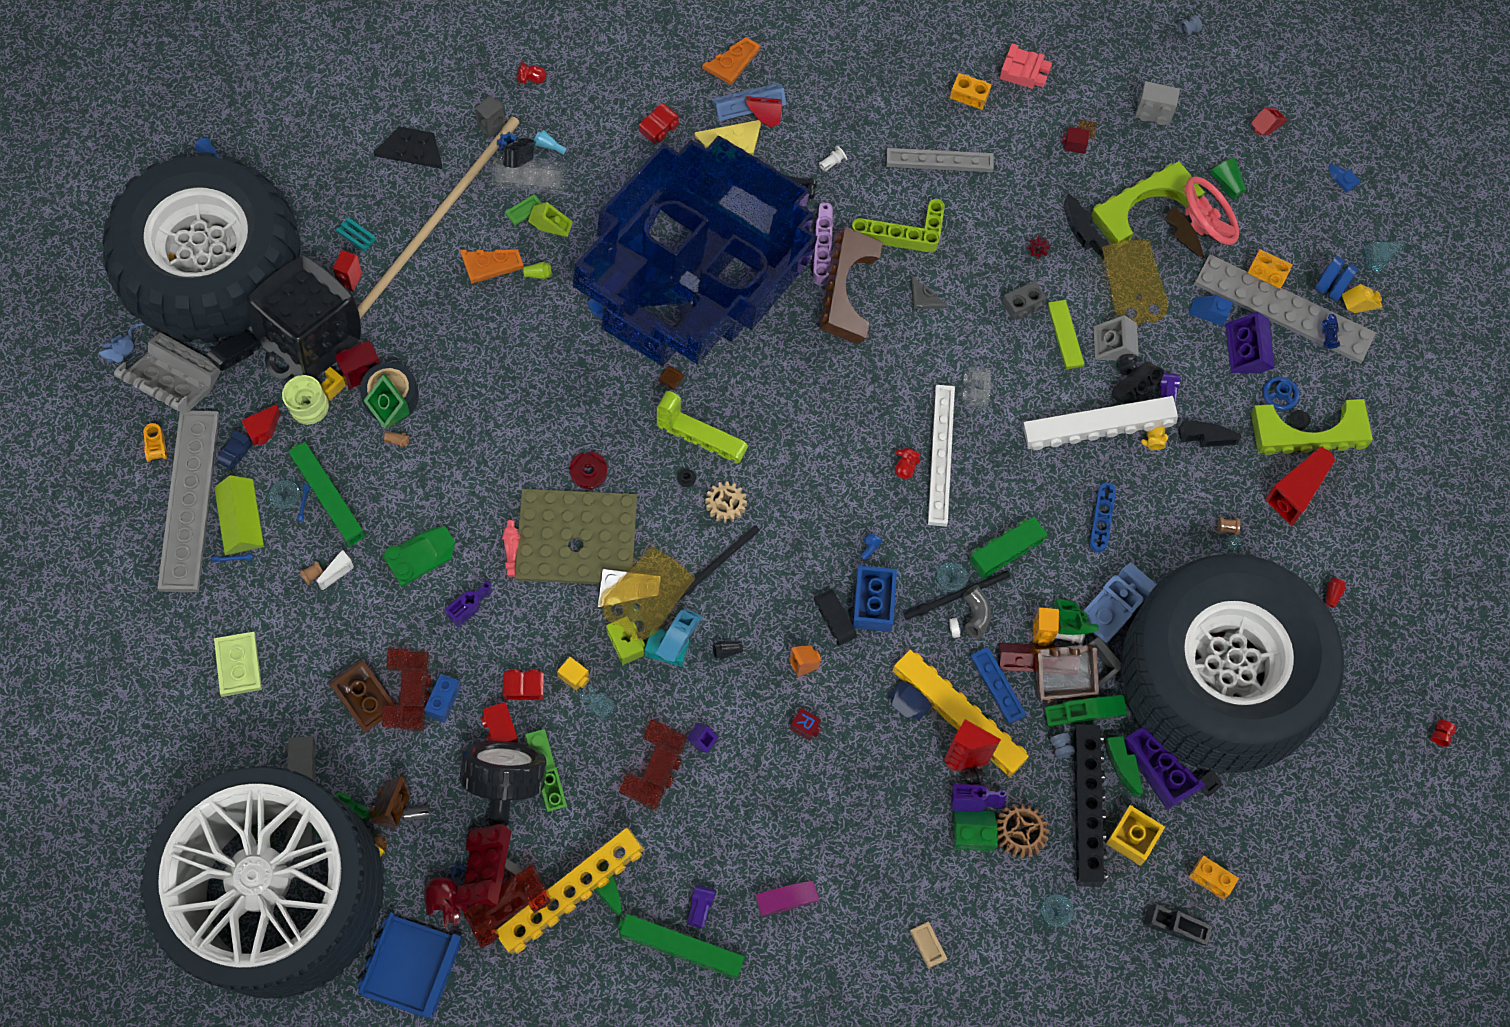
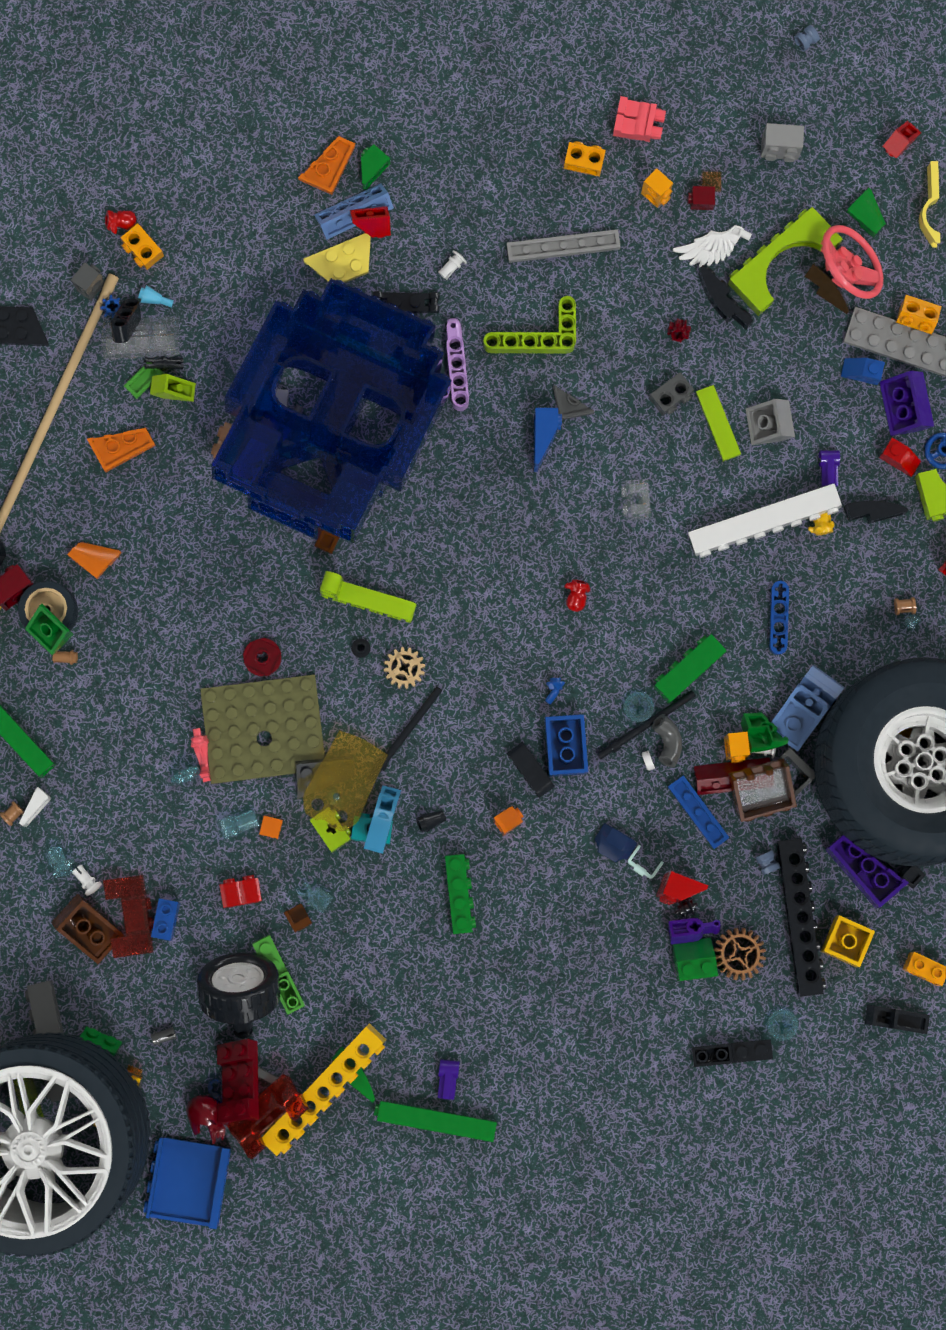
camera: 10 degrees left, 15 degrees up
(347, 625) = (57, 860): none -> clear light blue animal
(373, 651) = (87, 881): none -> white pin
(391, 802) = (137, 1034): reddish brown slope -> none
(419, 554) = (113, 775): green slope -> none
(443, 355) = (93, 558): none -> orange slope
(460, 611) = (164, 828): dark purple piece -> none
(490, 564) = (185, 775): none -> clear light blue gear
(499, 723) = (225, 936): red brick -> none
(529, 621) = (235, 825): none -> clear light blue piece
(540, 270) = (173, 446): lime cone -> none
(544, 197) = (163, 363): none -> black pin
(549, 97) = (144, 245): none -> light orange brick
(566, 629) = (271, 827): none -> orange tile
(573, 674) = (287, 872): yellow brick -> none
(576, 721) = (298, 918): none -> reddish brown panel
(659, 123) = (265, 255): red brick -> none
(659, 771) = (387, 951): clear red bracket -> none
(702, 737) = (421, 915): dark purple plate -> none
(743, 723) = (458, 894): none -> green brick
(774, 65) = (373, 165): none -> green slope
(786, 898) = (527, 1058): magenta slope -> none
(806, 725) = (519, 885): dark red brick -> none
(838, 314) = (483, 444): arch -> none
(900, 306) = (546, 424): none -> blue slope
(928, 945) = (666, 1078): tan tile -> none
(930, 732) = (639, 869): none -> light aqua piece
(941, 455) = (610, 579): white plate -> none
(955, 708) = (664, 846): yellow brick -> none
(1001, 929) = (732, 1053): none -> black slope
(1035, 123) = (657, 188): none -> light orange brick
(1080, 182) = (712, 246): none -> white animal
(1086, 710) = (786, 824): green slope -> none
(1124, 765) = (830, 873): green slope -> none
(1128, 363) = (785, 447): black wheel -> none
(1135, 272) = (779, 343): clear yellow piece -> none
(1137, 383) = (797, 468): black beam -> none
(1238, 390) = (900, 457): none -> red slope
(1289, 204) = (933, 195): none -> light yellow piece

